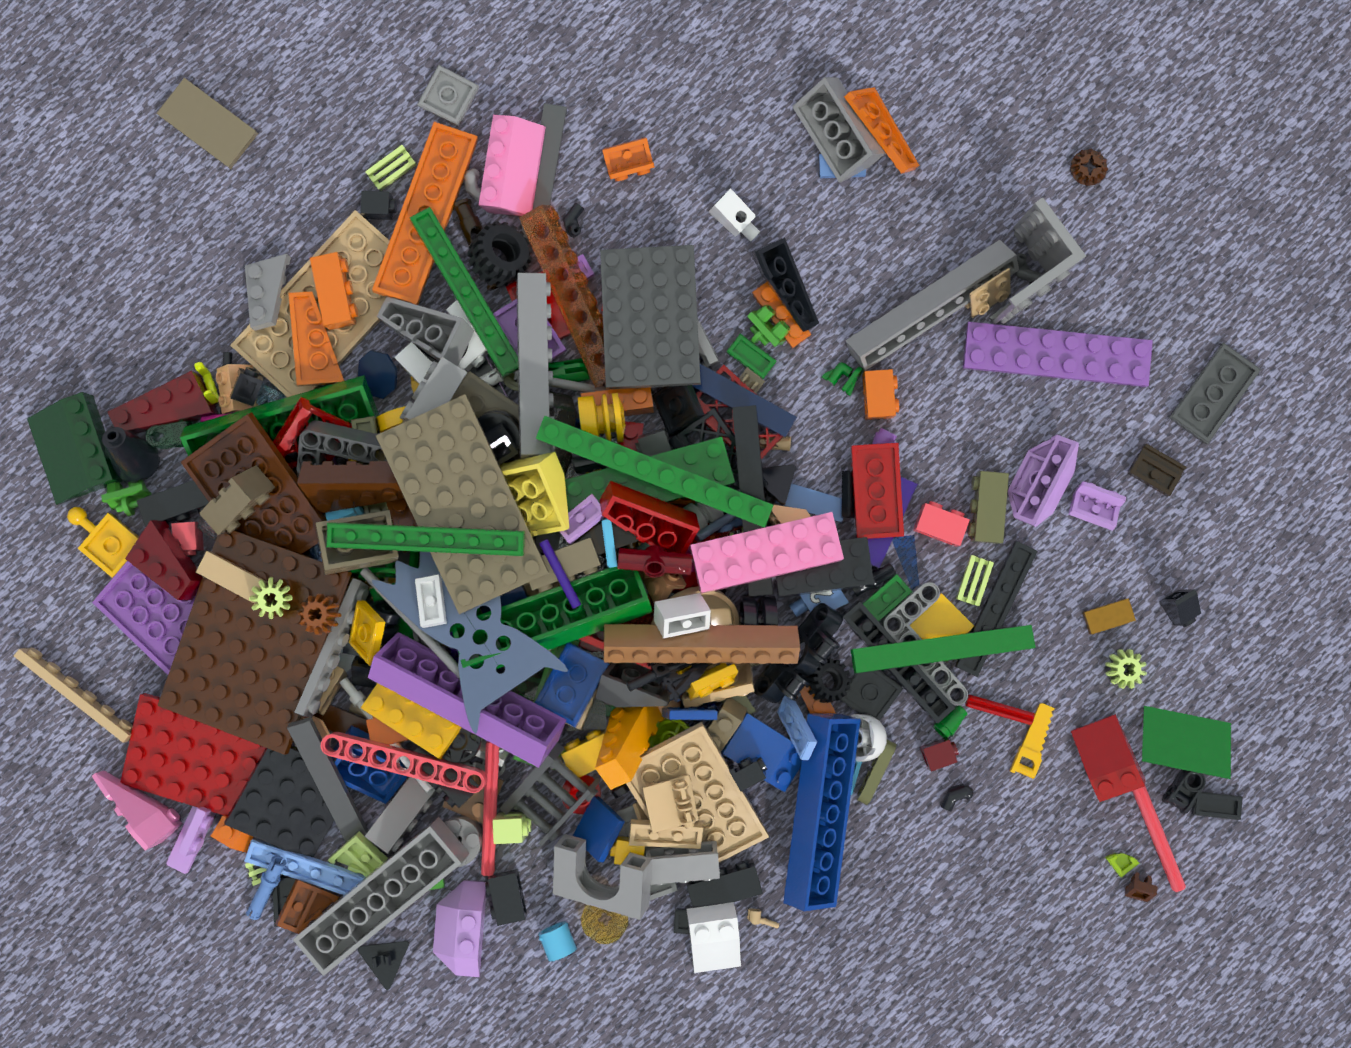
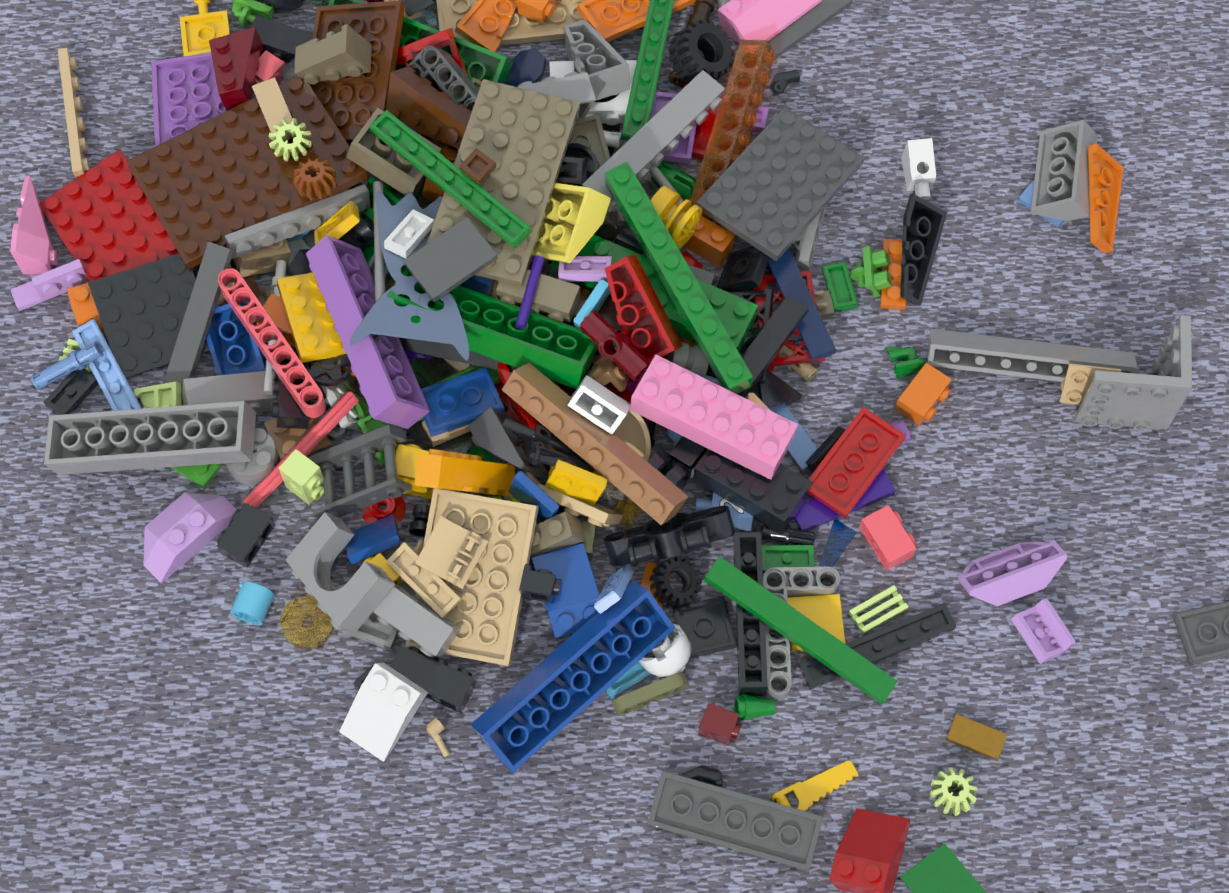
camera: 35 degrees right, 20 degrees down
(303, 905) = (79, 398): dark orange wing -> none
(384, 960) = (99, 505): black piece -> none
(441, 516) = (478, 166): none -> reddish brown tile
(483, 602) = (450, 259): none -> dark grey tile
(628, 159) = (869, 69): orange bracket -> none
(988, 507) = (942, 556): olive brick -> none
(1000, 709) = (807, 735): red axle -> none
(1003, 810) = (735, 820): none -> dark grey plate
(1057, 354) = (1113, 487): medium lavender plate -> none
(1156, 470) = (1124, 647): dark brown plate -> none
(1182, 607) = (1051, 776): black slope -> none

